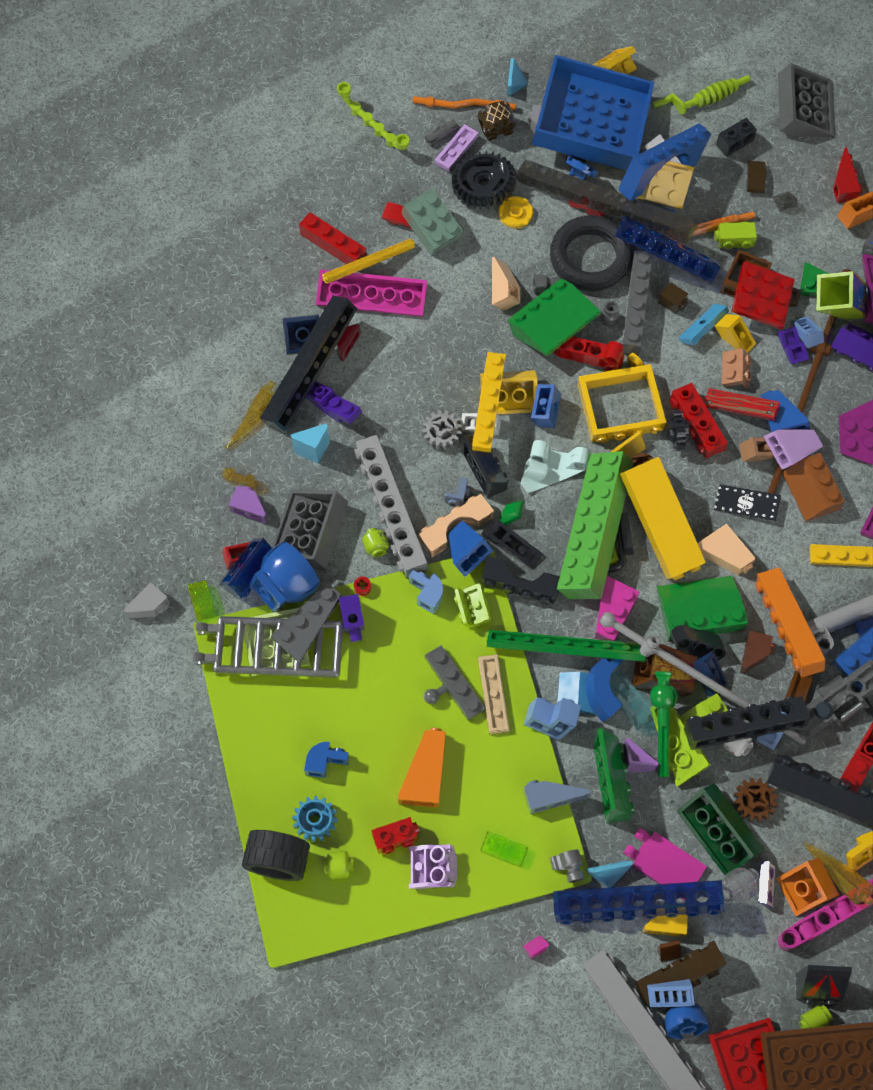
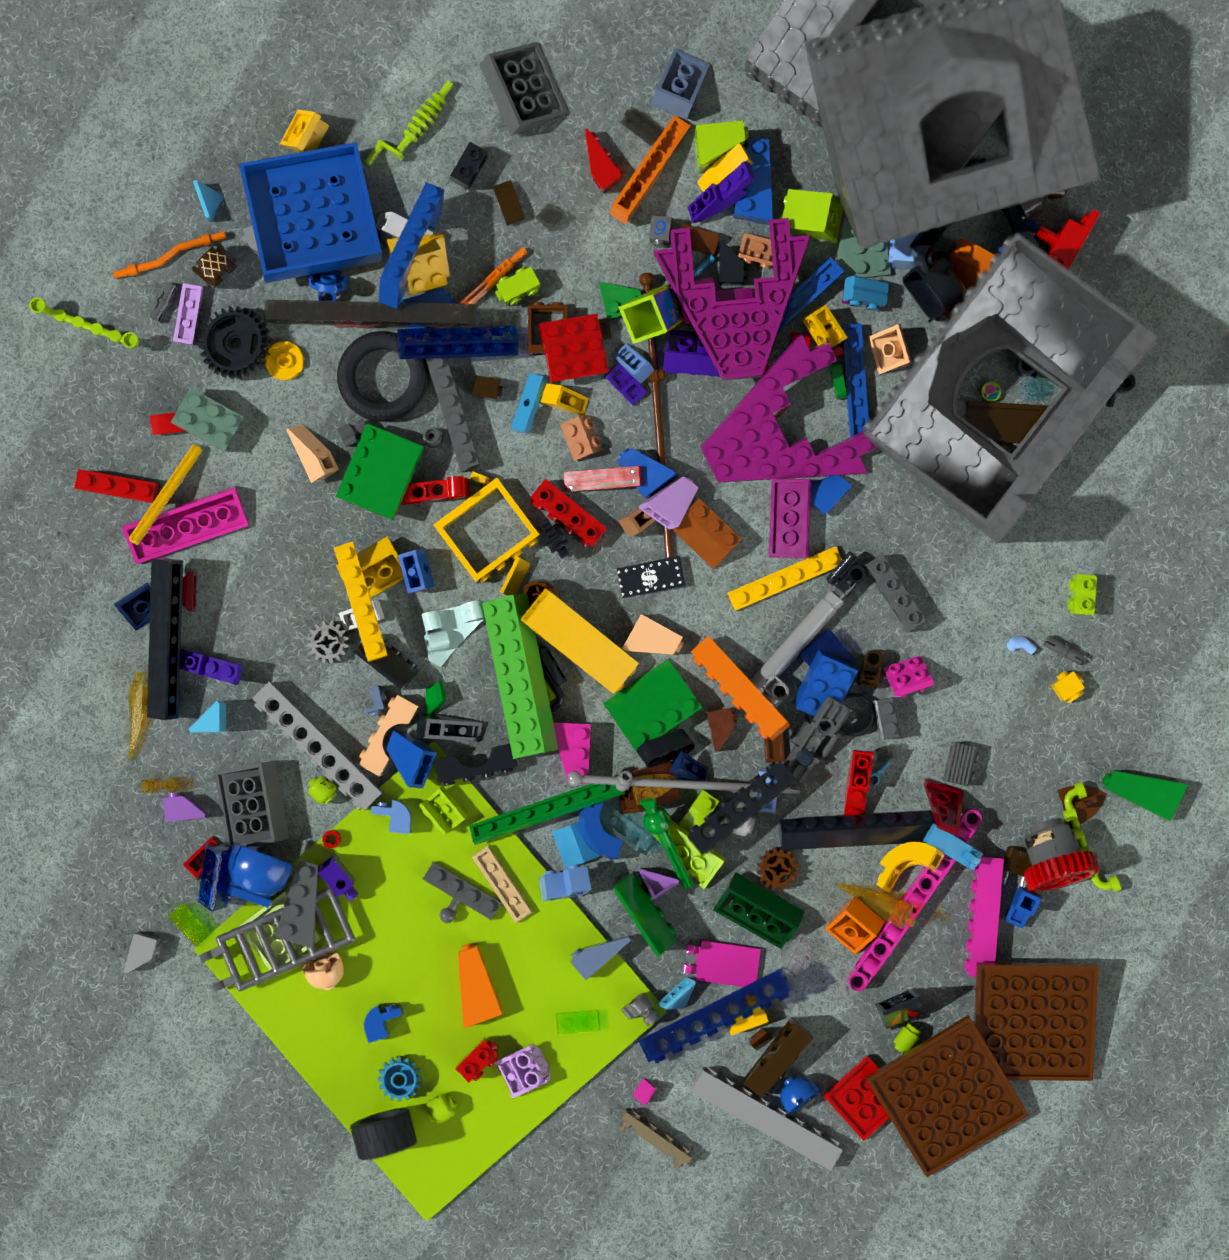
camera: 30 degrees left, 20 degrees up
(297, 692) = (324, 972): none -> light nougat cylinder
(530, 1002) = (649, 1132): none -> dark tan piece
(679, 986) = (788, 1082): medium blue slope -> none
(767, 884) = (819, 941): tile -> none

